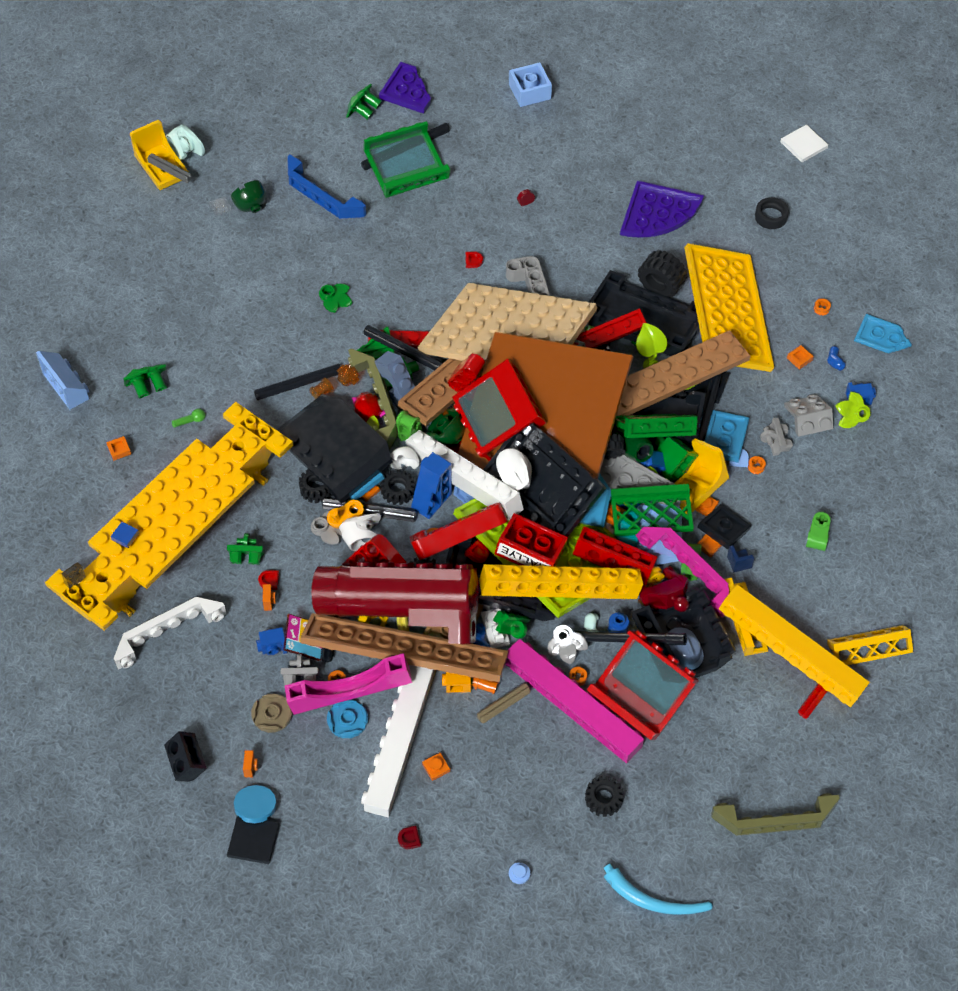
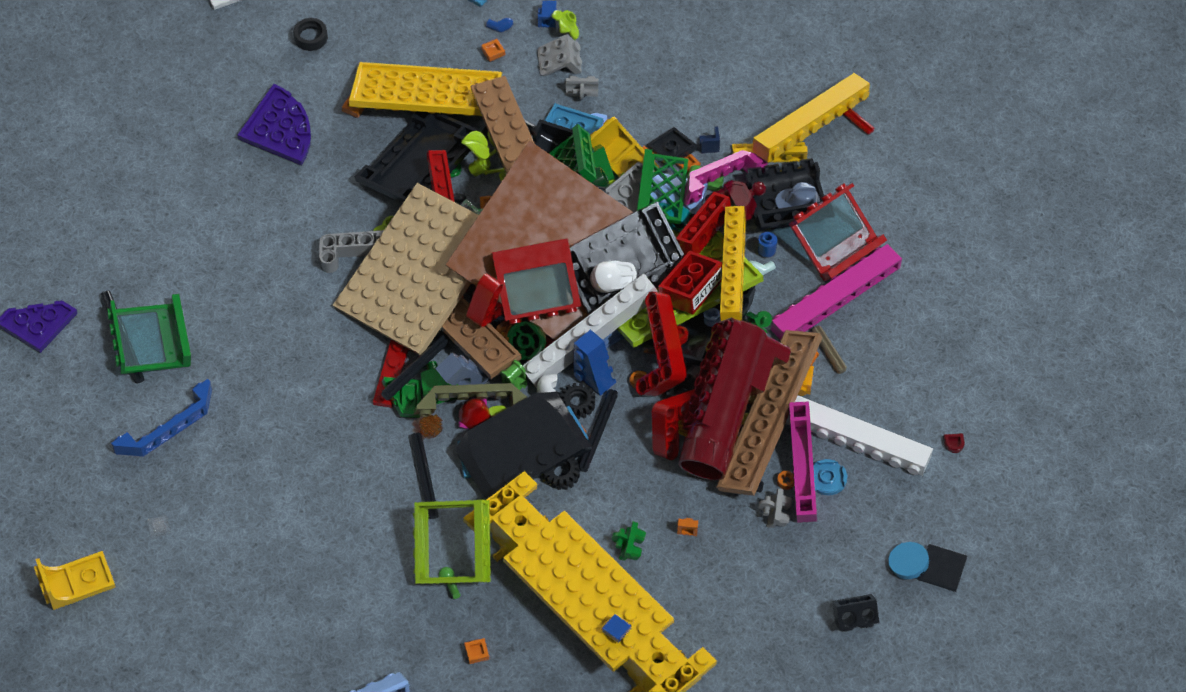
camera: 80 degrees left, 0 degrees up
(73, 575) = (661, 675): clear smoke plate -> none
(137, 376) = (390, 624): green connector -> none
(169, 168) = (94, 567): dark grey axle -> none
(171, 619) = (729, 658): white slope -> none
(184, 140) = (54, 546): light aqua helmet -> none
(189, 425) = (482, 541): none -> lime window
(250, 197) = (161, 488): dark green cylinder -> none
(250, 764) = (867, 560): orange plate -> none
(269, 577) = (663, 527): red tile -> none
(271, 641) = (739, 527): blue brick -> none
(271, 713) = (812, 539): dark tan tile -> none
(294, 629) = (739, 502): piece -> none
(322, 388) = (441, 452): clear orange bush -> none
(328, 534) = (613, 465): light grey plate -> none
(336, 298) = (321, 427): green plate -> none
(338, 515) = (606, 449): light orange piece -> none
(356, 103) = (48, 373): green connector -> none
(358, 528) = (628, 438): white helmet -> none
(436, 766) = (886, 411): orange plate -> none
(473, 259) = (300, 296): red tile -> none
(519, 873) = (997, 362): light blue plate -> none
(525, 197) = (231, 236): dark red tile -> none
(530, 84) = (74, 204): light blue brick -> none
(567, 646) = (778, 288): plate -> none
(582, 671) = (806, 283): orange bush -> none
(610, 786) = (933, 296): black tyre -> none
(621, 637) = (772, 272): black piece -> none
(635, 896) = (1019, 288): medium azure animal -> none
(662, 273) = (375, 132): black tyre -> none
(726, 816) = (967, 134): olive slope -> none
(754, 460) = (608, 104): orange bush -> none
(818, 532) = (694, 78): bright green piece -> none
(821, 311) = (432, 24): orange bush -> none
(869, 638) = (807, 66): yellow fence -> none

